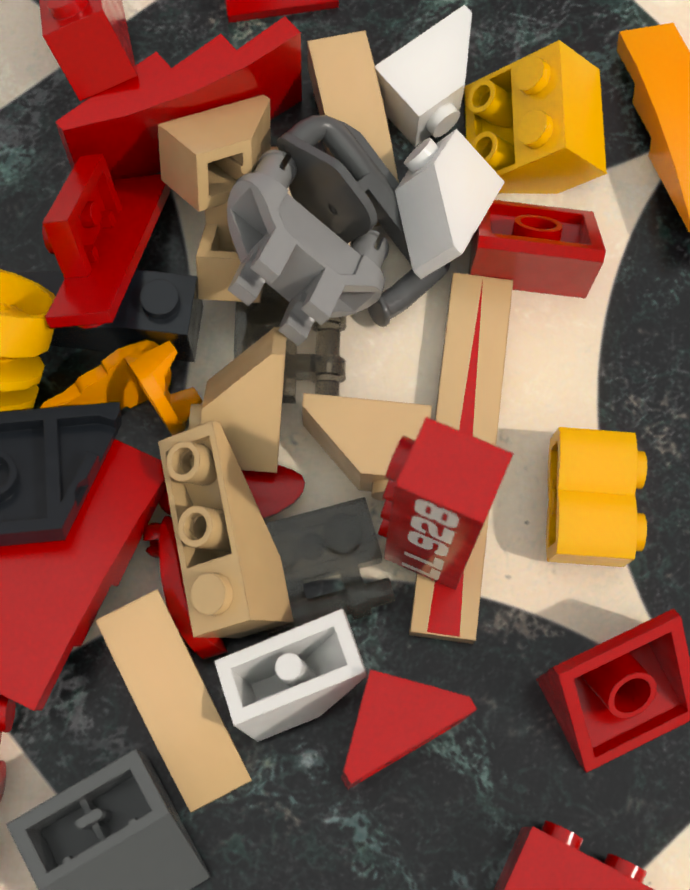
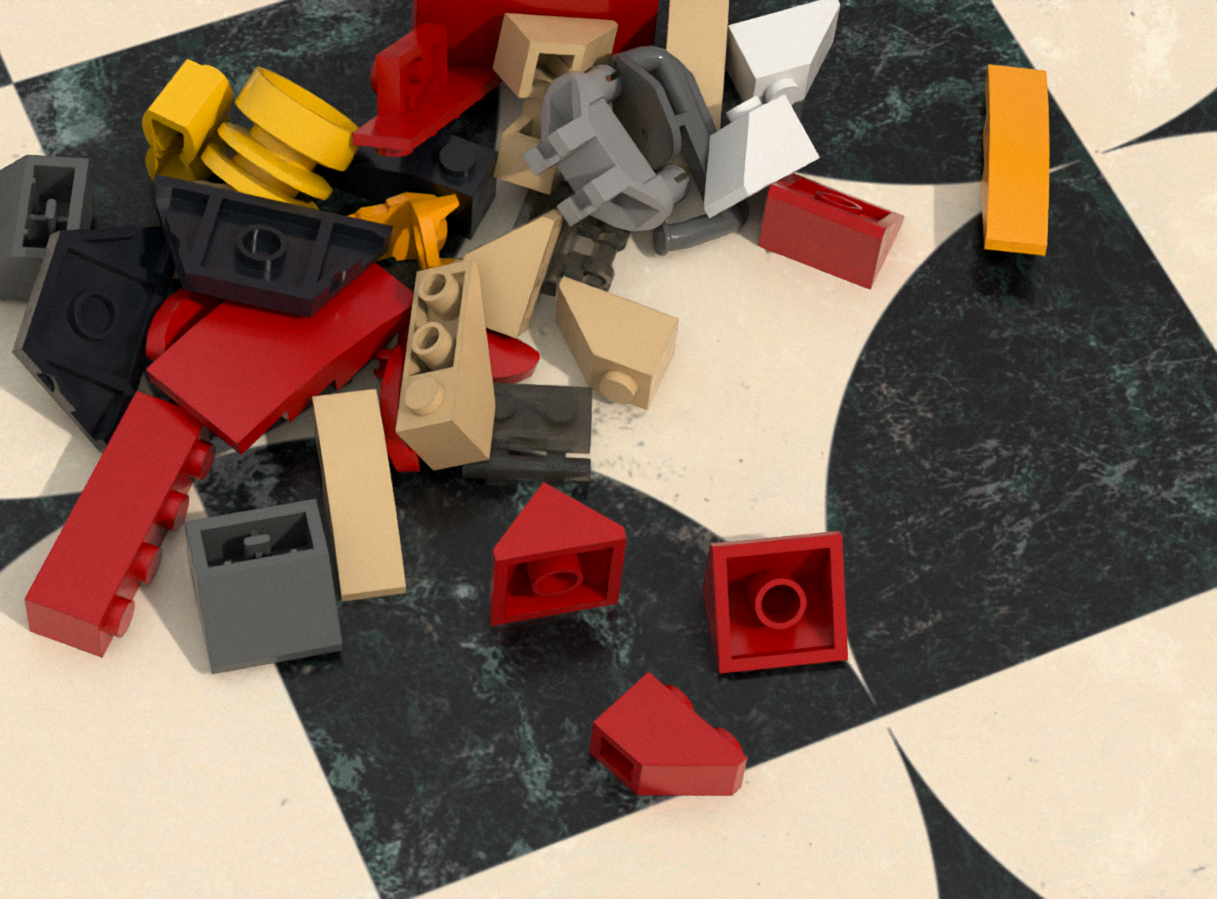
camera: 15 degrees right, 15 degrees down
(291, 676) = (470, 495): white slope -> none
(439, 499) = (649, 367): red brick -> none
(470, 403) = (697, 384): tan tile -> none
(539, 121) = (875, 120): yellow slope -> none
(593, 497) = (807, 446): yellow brick -> none

